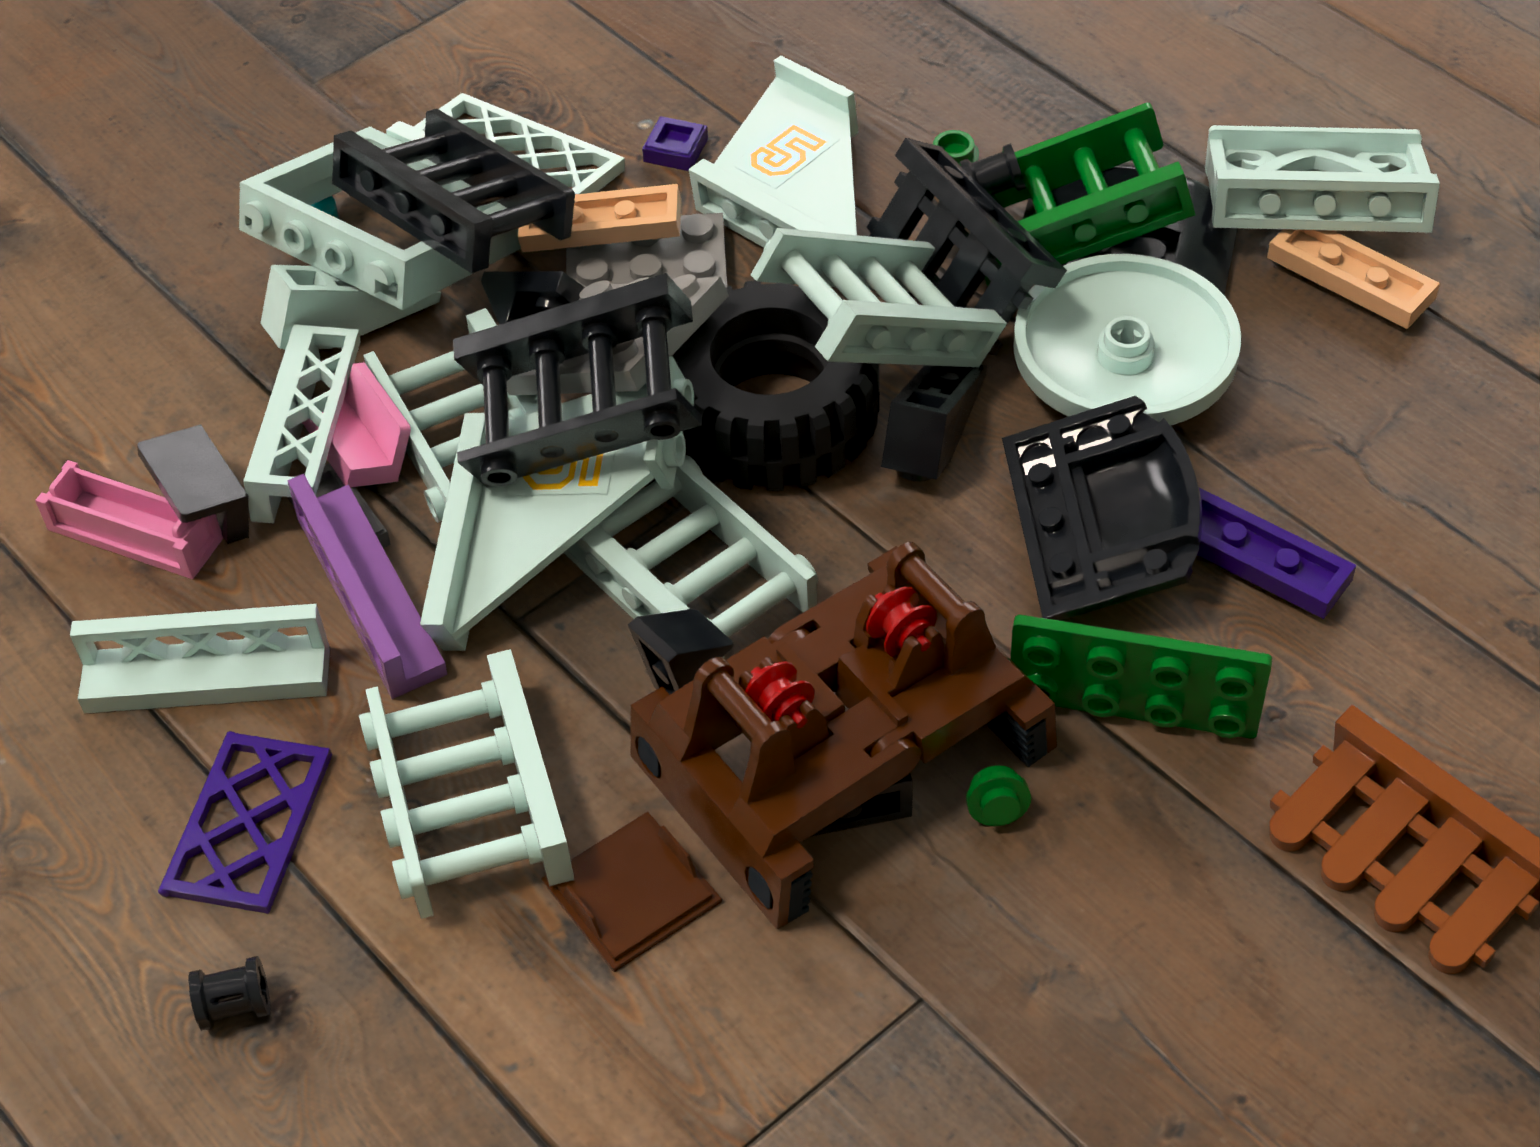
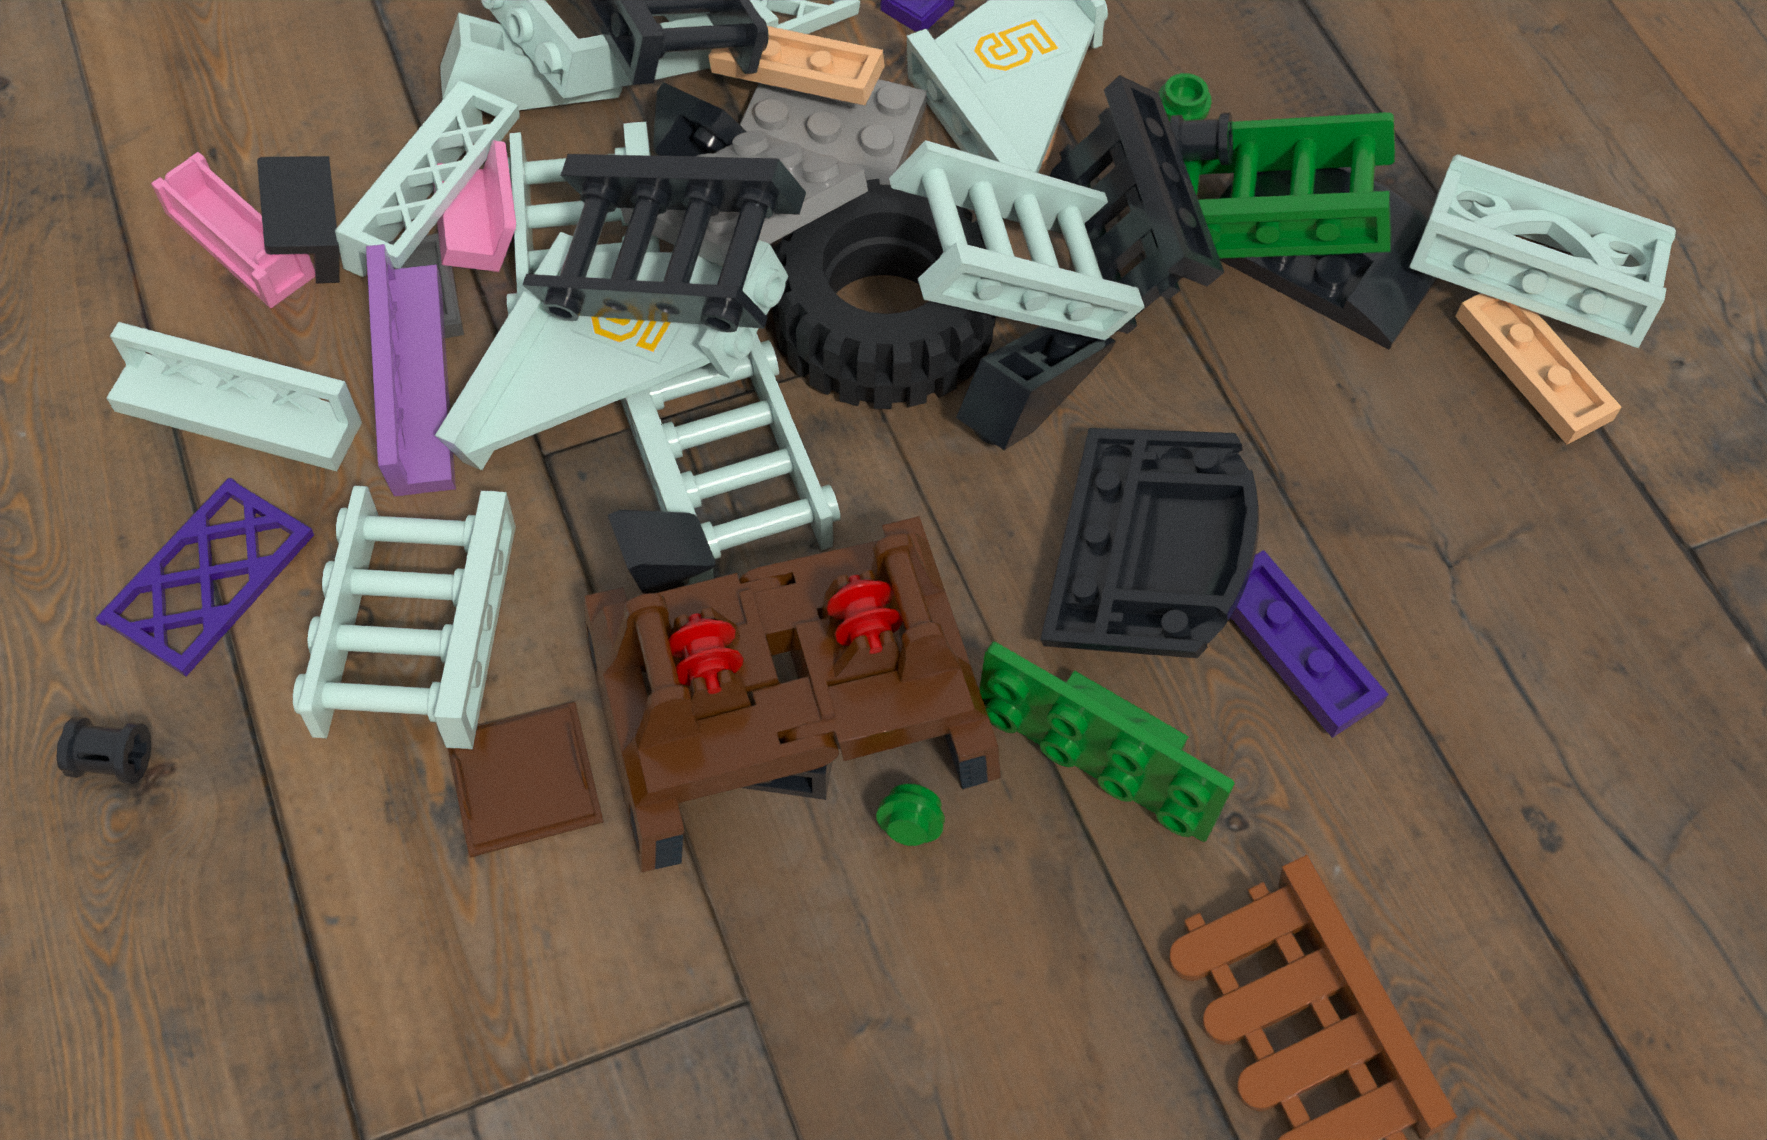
camera: 15 degrees right, 10 degrees up
(1128, 331) = (1265, 359): light aqua dish -> none

